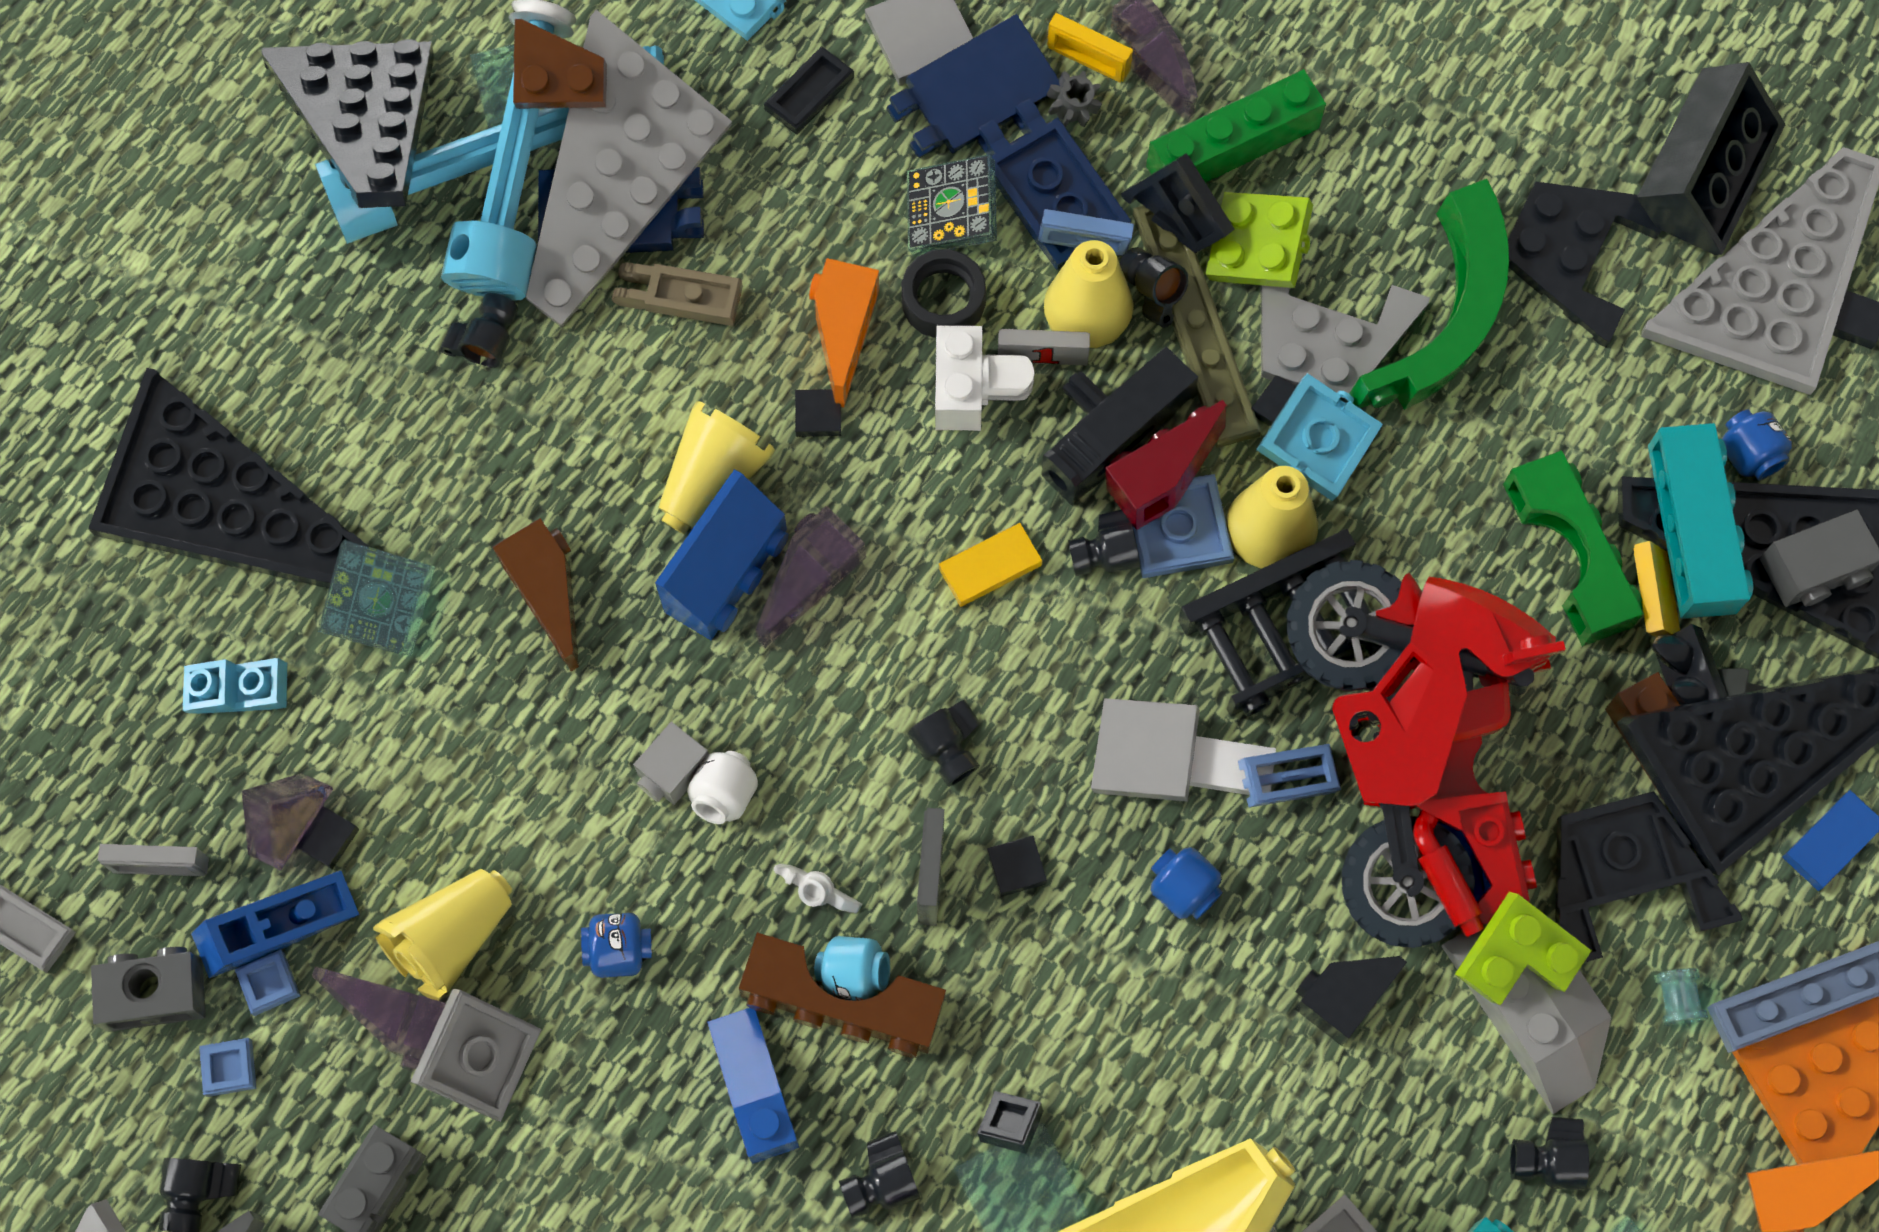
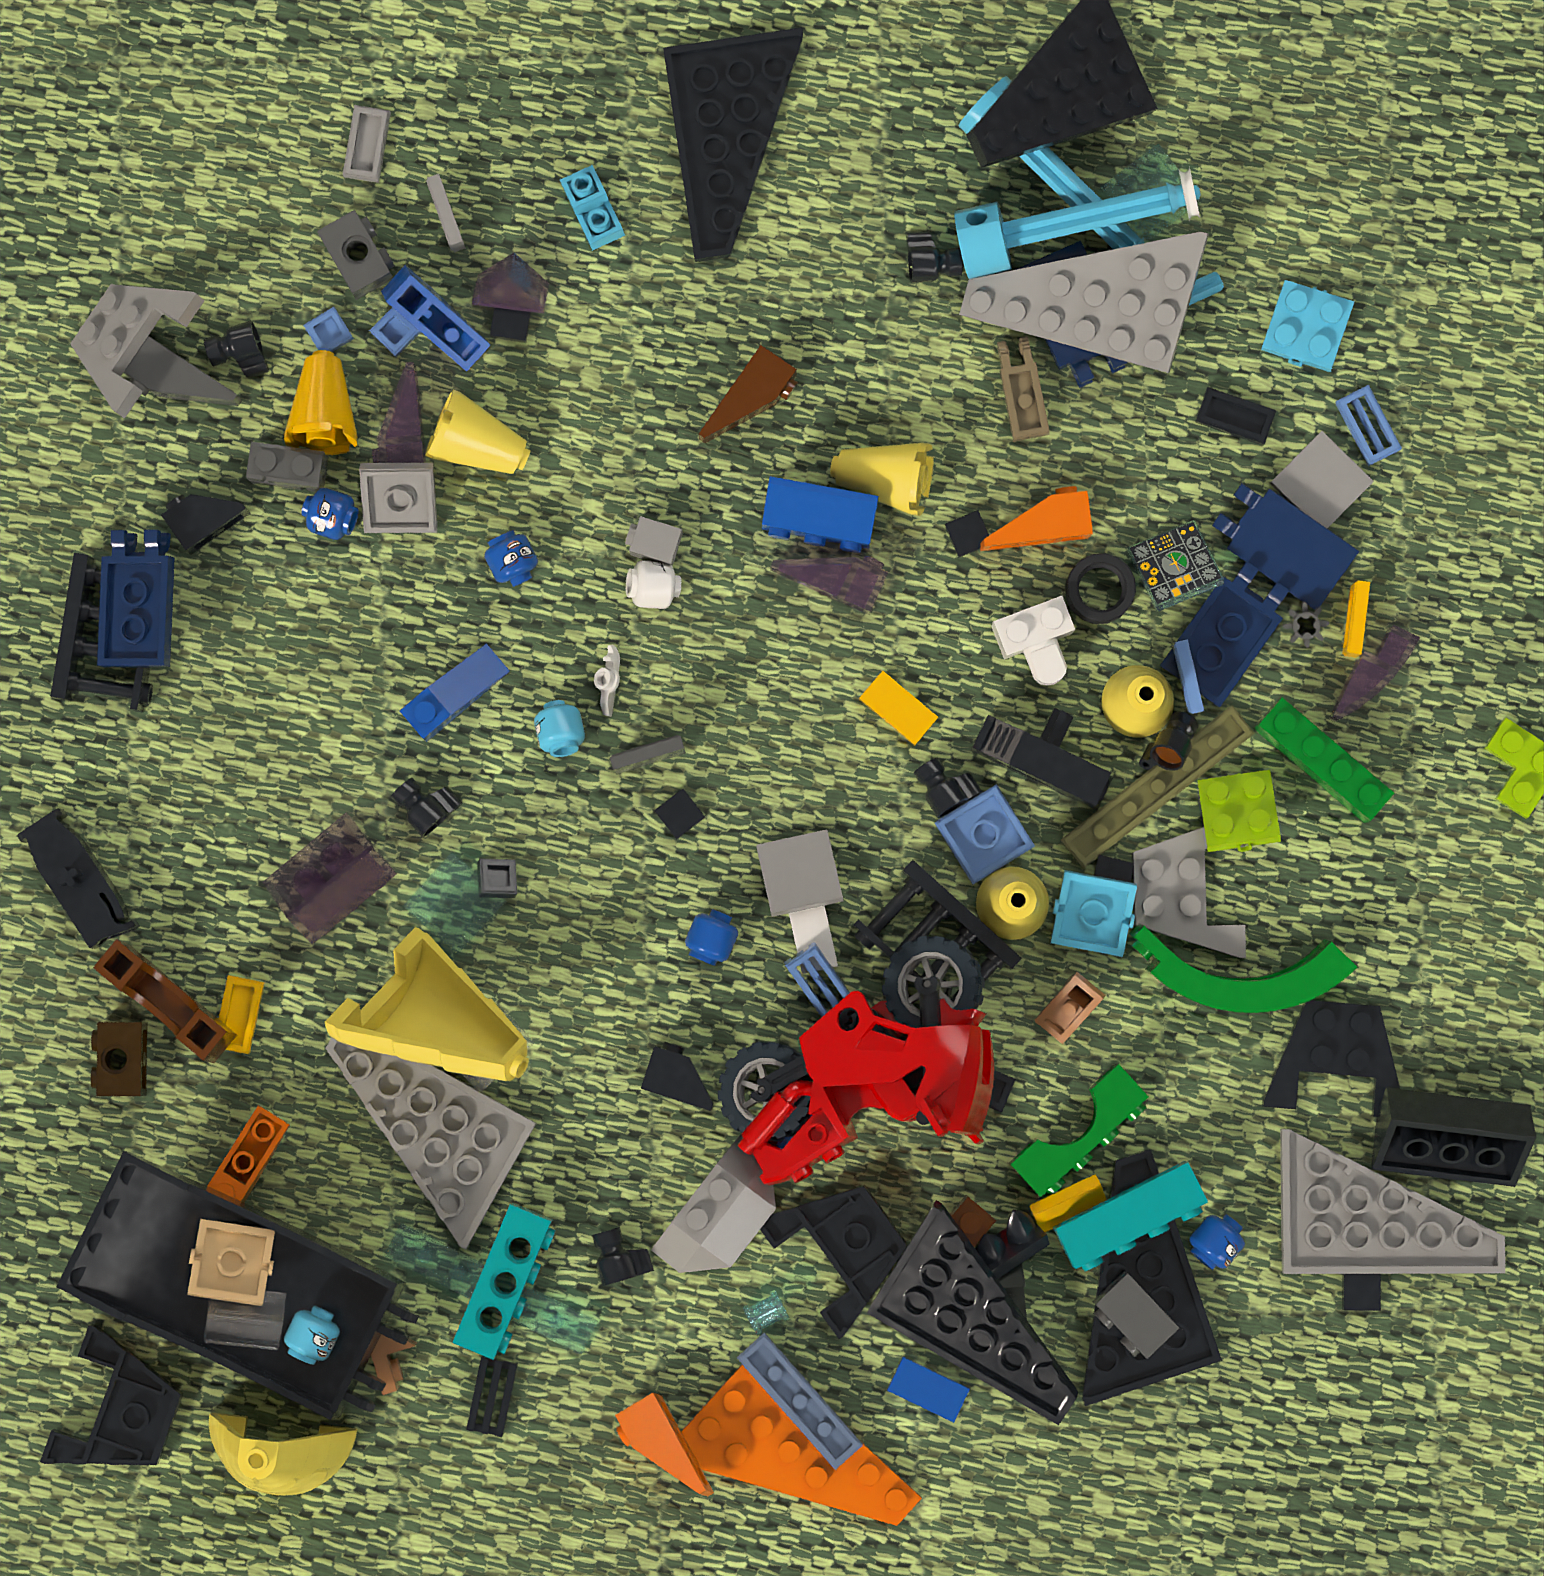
camera: 70 degrees right, 15 degrees up
(318, 1107) = (321, 407): none -> yellow cone
(376, 598) = (693, 278): clear light blue tile -> none
(456, 1152) = (330, 513): none -> blue head
(555, 71) = (1143, 225): reddish brown wing -> none
(900, 1014) = (533, 682): reddish brown arch -> none
(940, 740) = (748, 725): black piece -> none
(1046, 346) = (1085, 680): light grey tile -> none
(1158, 474) = (1012, 806): dark red slope -> none
(1182, 204) = (1239, 741): black wing -> none
(1422, 498) = (1069, 1007): none -> medium nougat slope
(1519, 939) = (749, 1179): lime plate -> none

